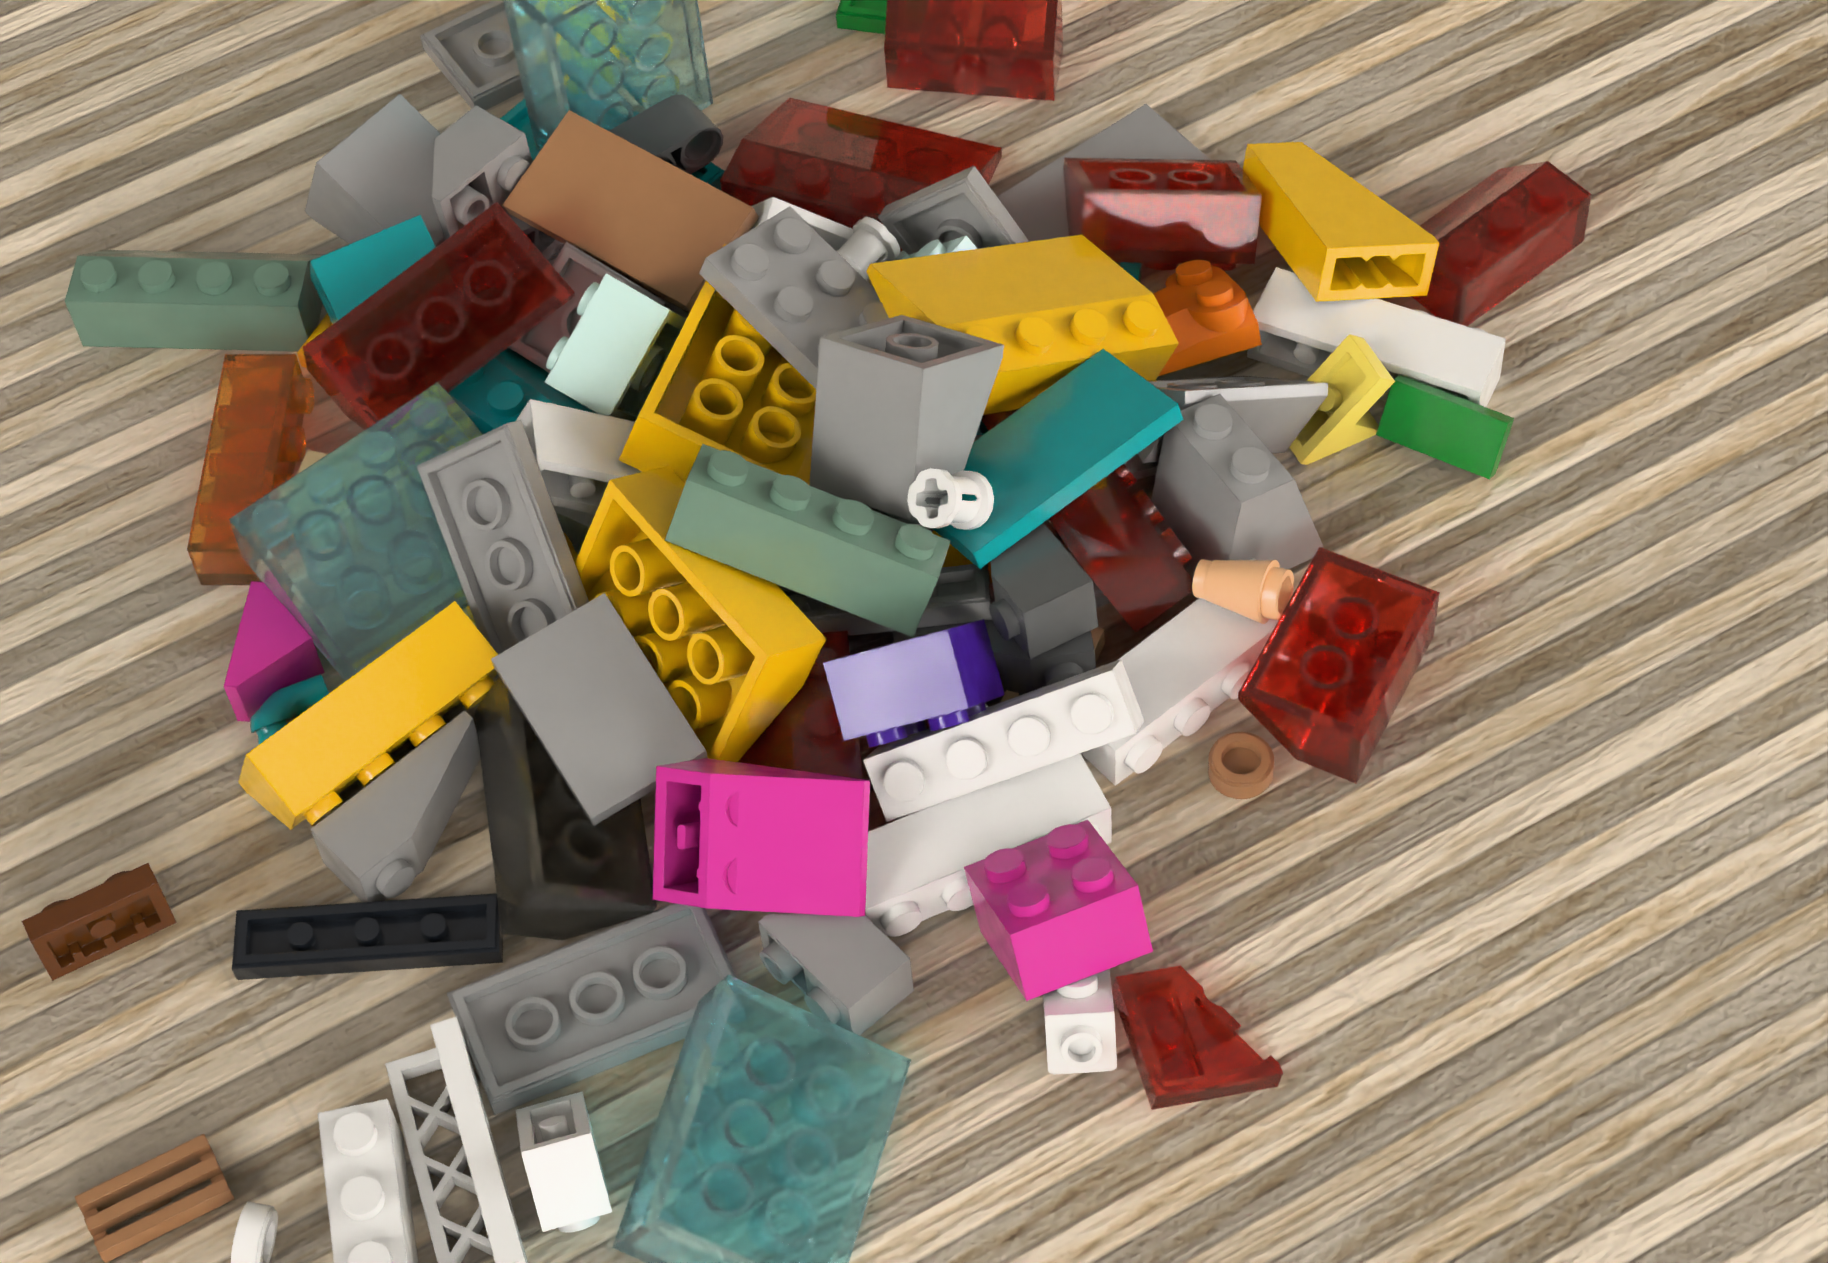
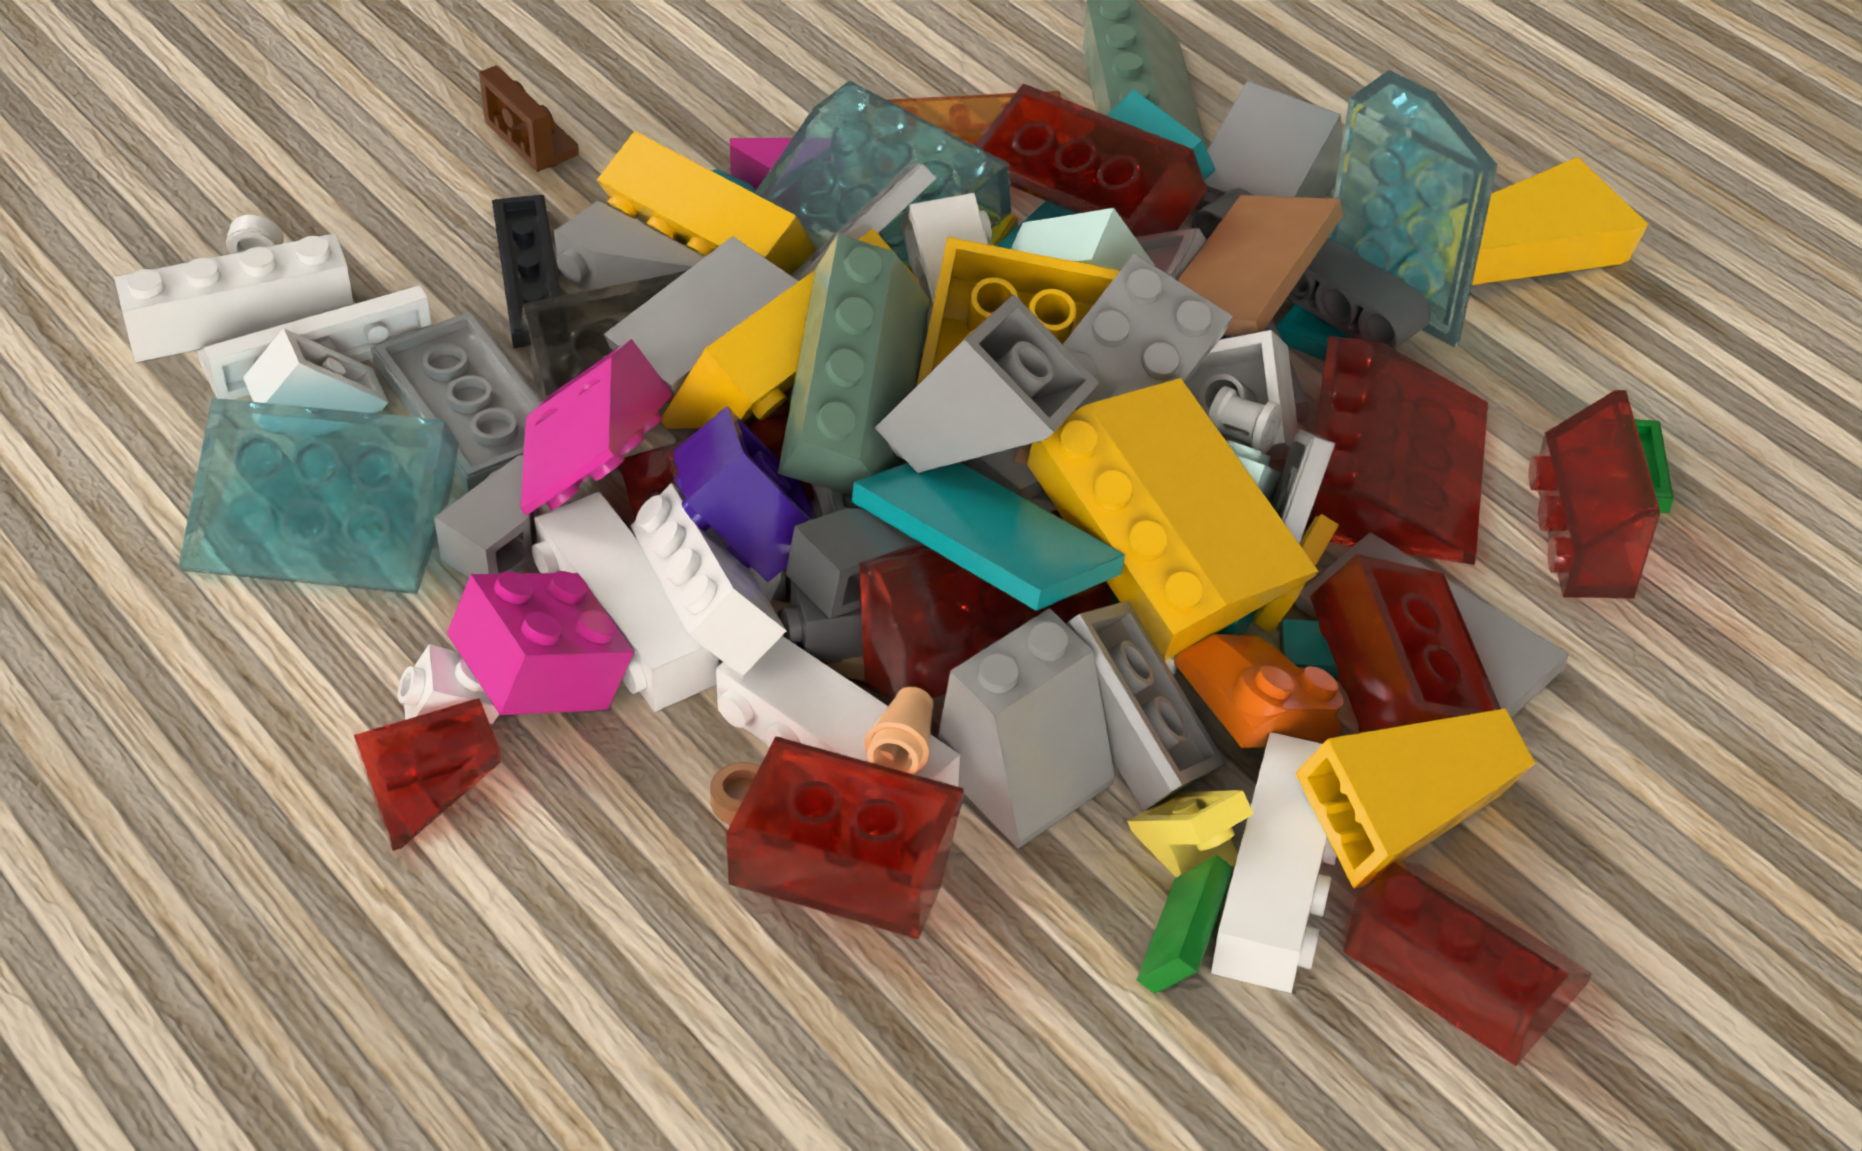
camera: 75 degrees right, 10 degrees down
(150, 1188) = (309, 194): medium nougat tile -> none
(475, 166) = (1264, 164): light grey slope -> none
(952, 509) = (891, 440): white bush -> none

